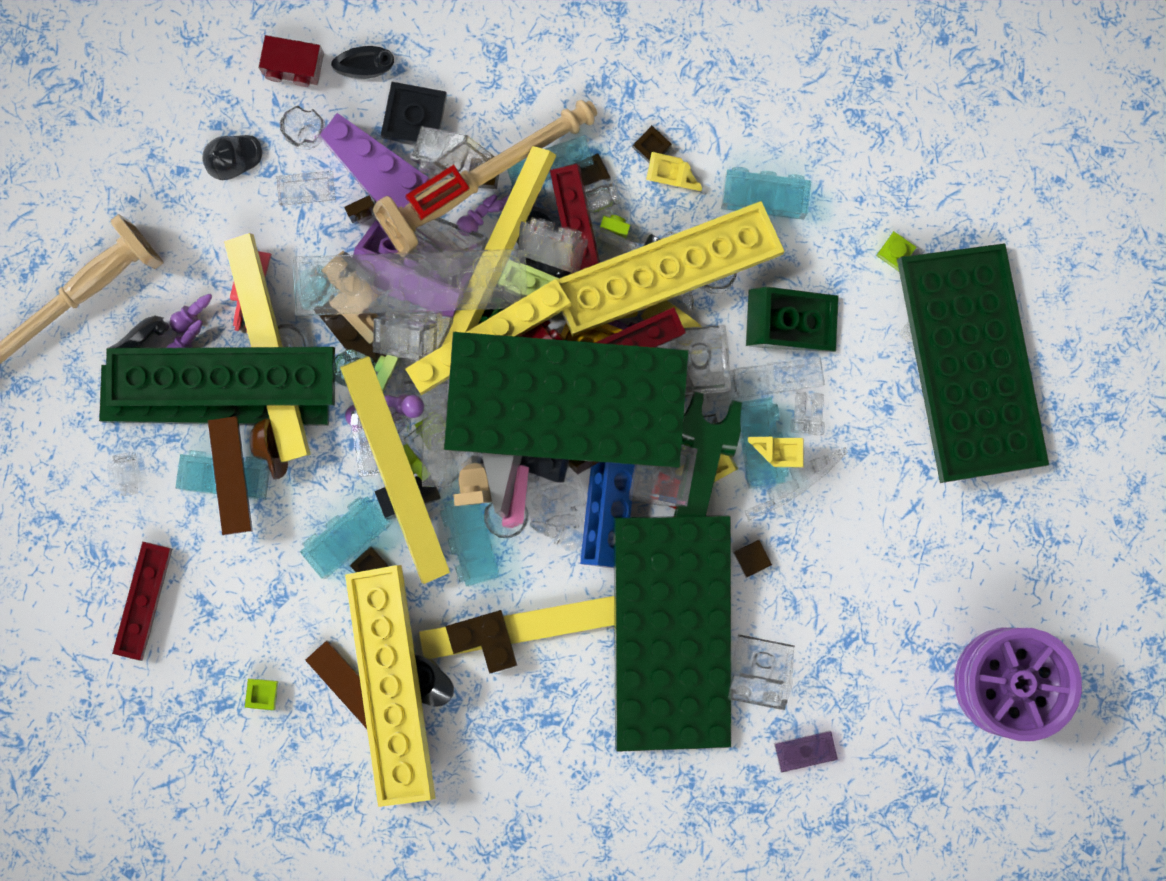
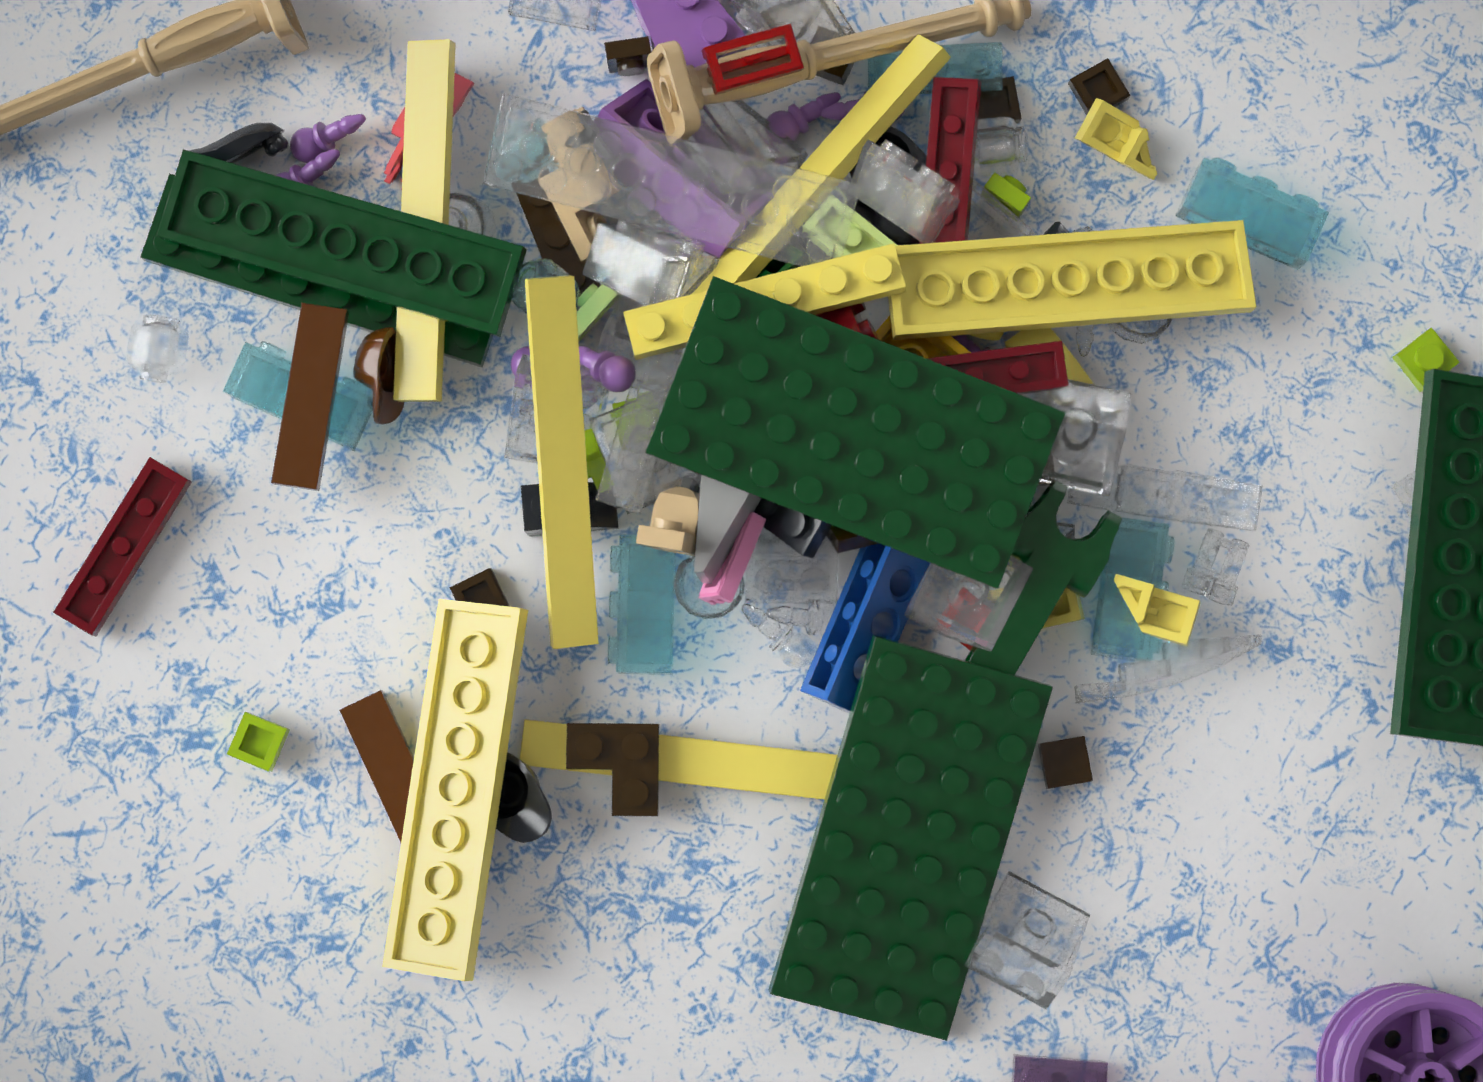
camera: 20 degrees right, 0 degrees up
(344, 537) = (455, 542): clear light blue brick -> none
(791, 319) = (1234, 416): dark green slope -> none

